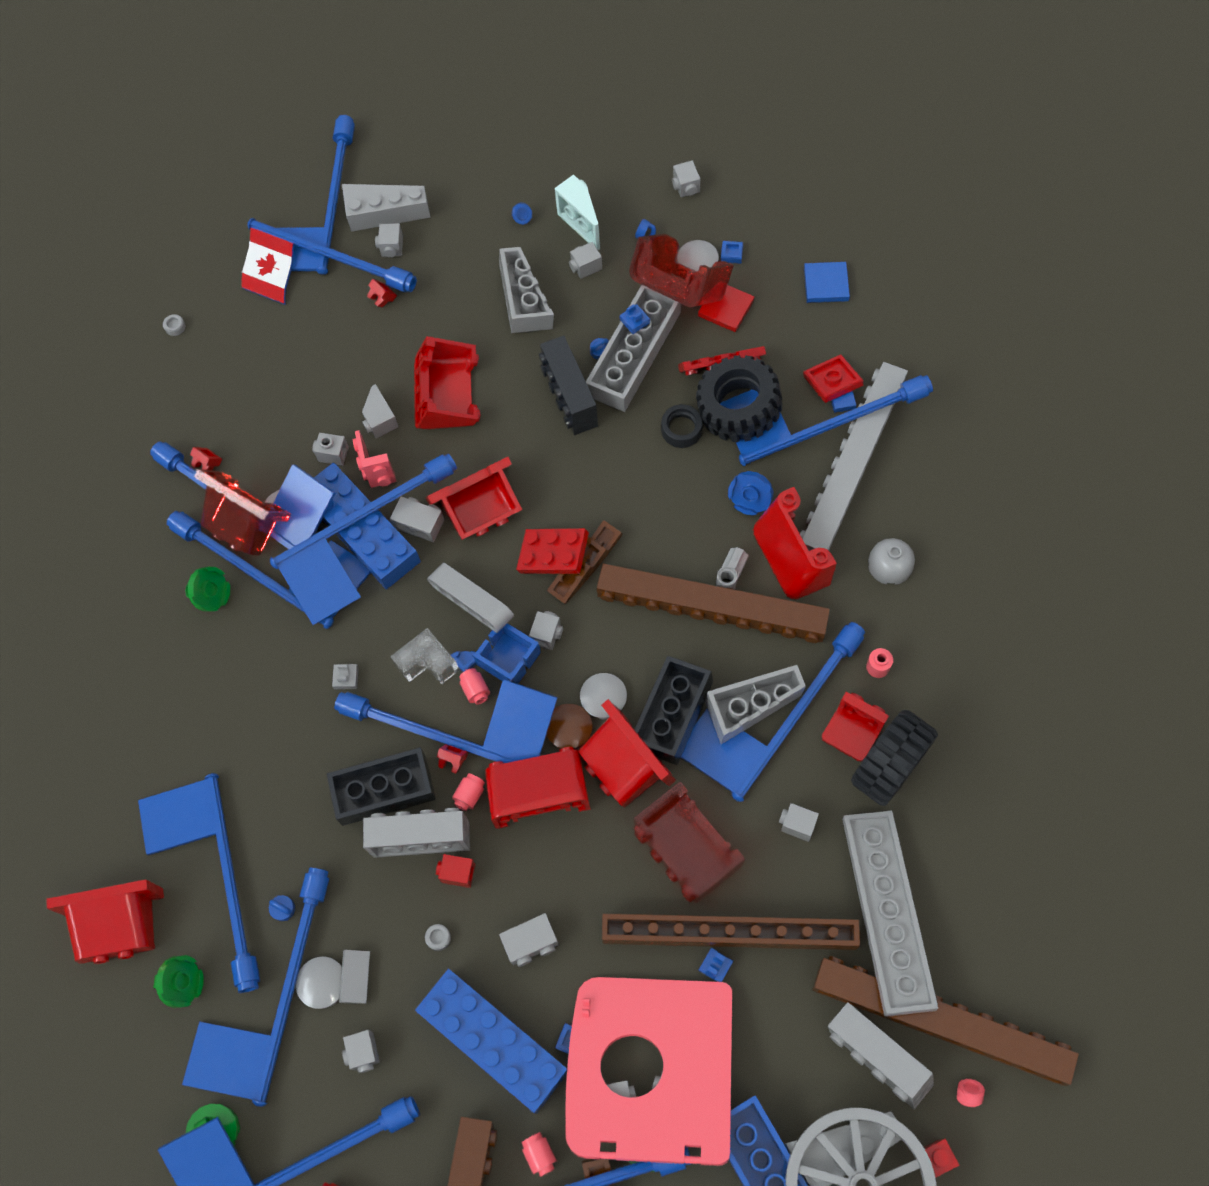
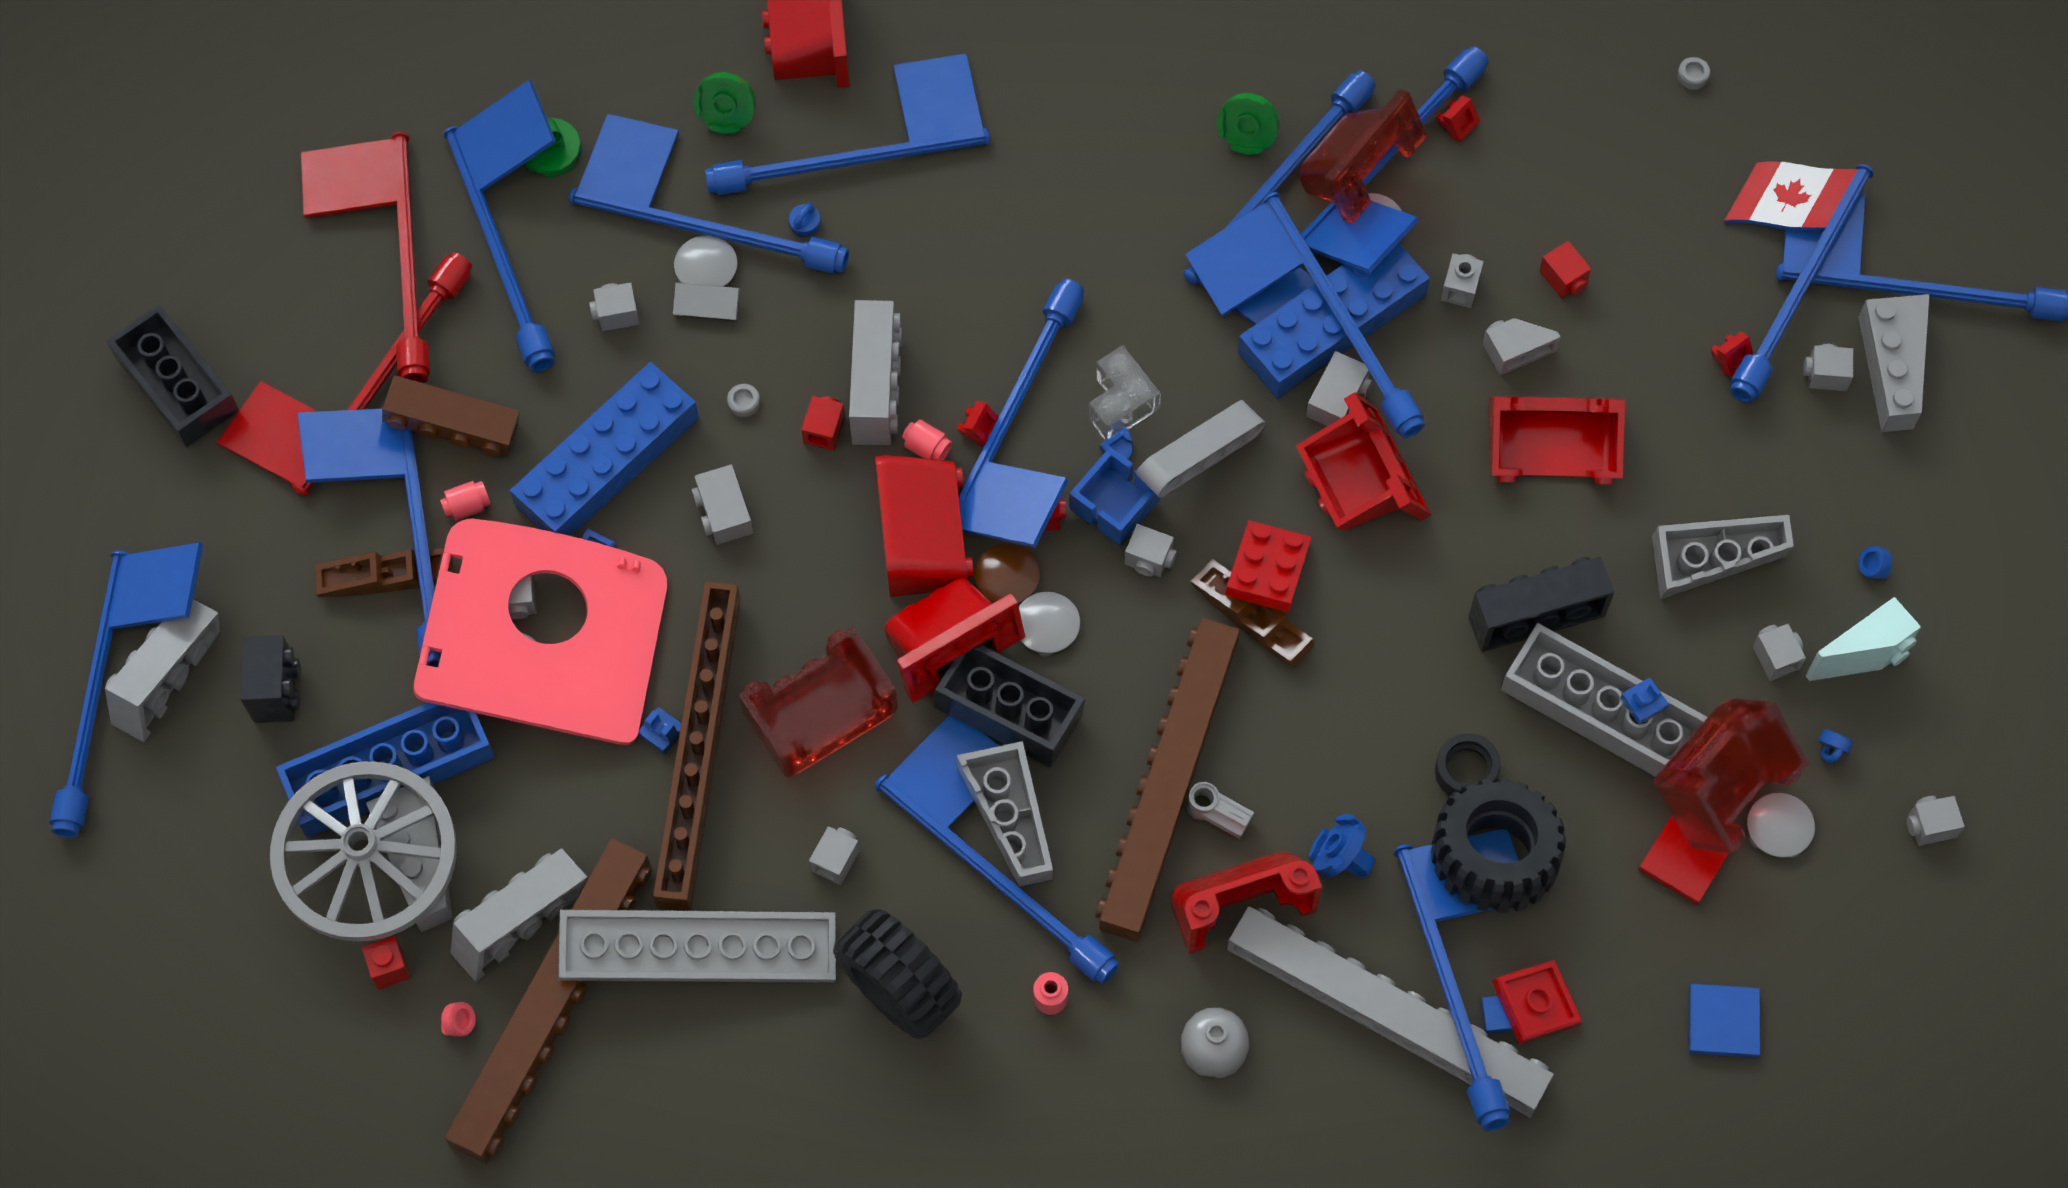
camera: 90 degrees right, 0 degrees up
(323, 388) = (1565, 270): none -> red brick
(345, 676) = (1110, 297): light grey tile -> none
(374, 469) = (1430, 321): coral bracket -> none
(380, 786) = (944, 333): black brick -> none
(474, 686) = (1075, 455): coral brick -> none
(597, 347) = (1619, 657): blue tile -> none
(693, 366) = (1573, 810): red wing -> none
(732, 251) = (1791, 880): blue tile -> none
(854, 726) = (964, 945): red bracket -> none

